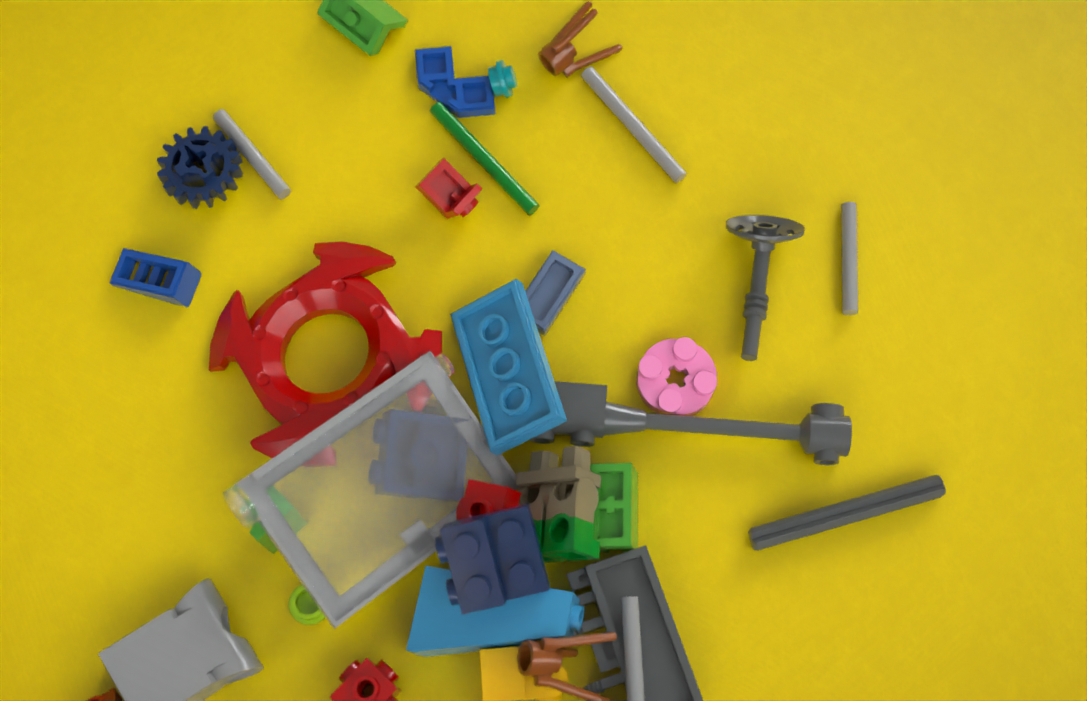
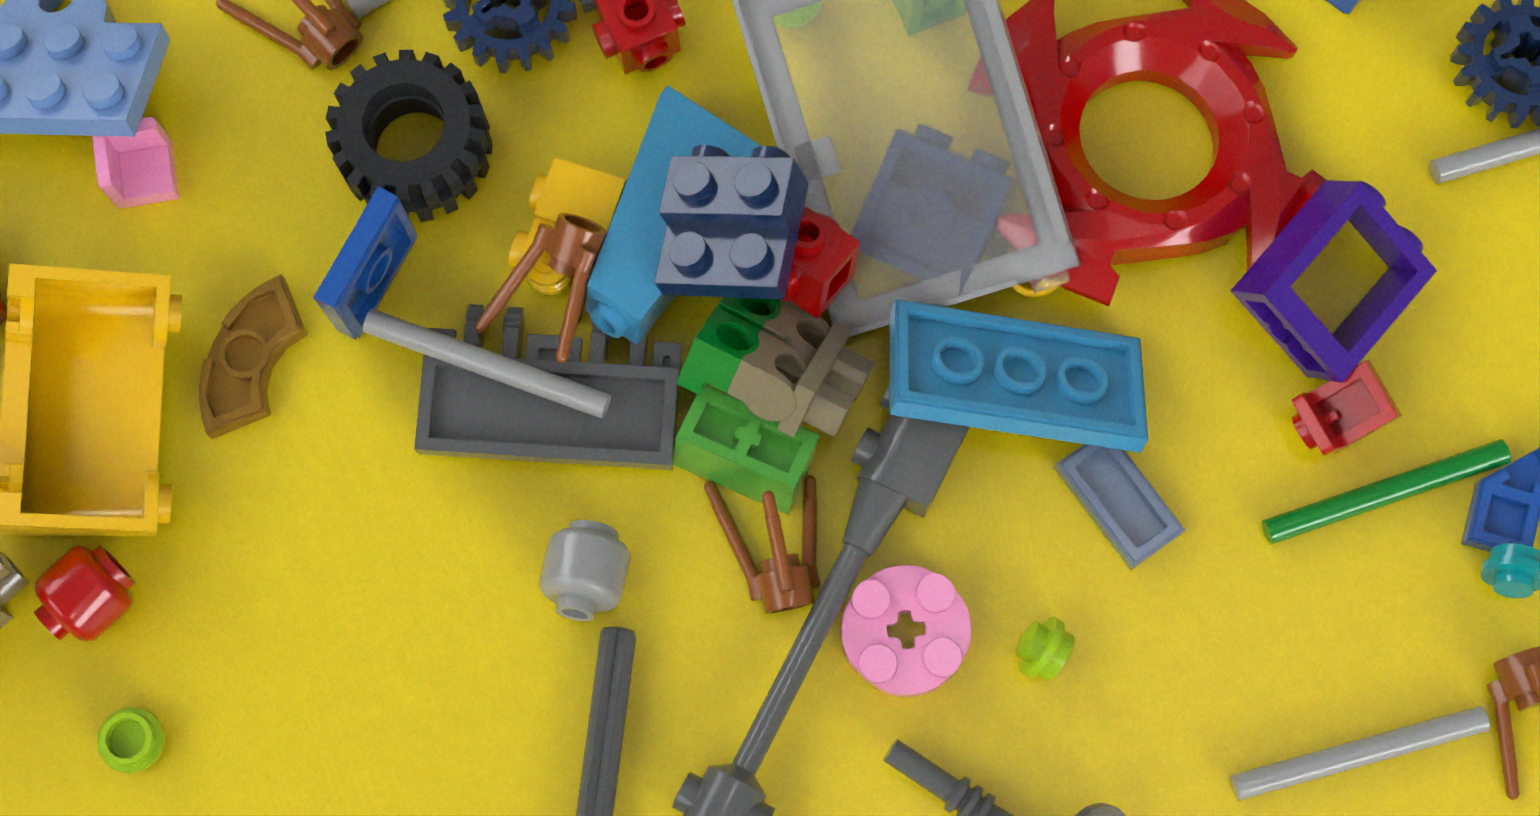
camera: 115 degrees right, 5 degrees up
(368, 236) = (1270, 299): none -> dark purple window
(654, 297) = (1044, 649): none -> lime plate
(677, 454) = (783, 580): none -> dark orange plant
(729, 572) = (584, 570): none -> light grey head

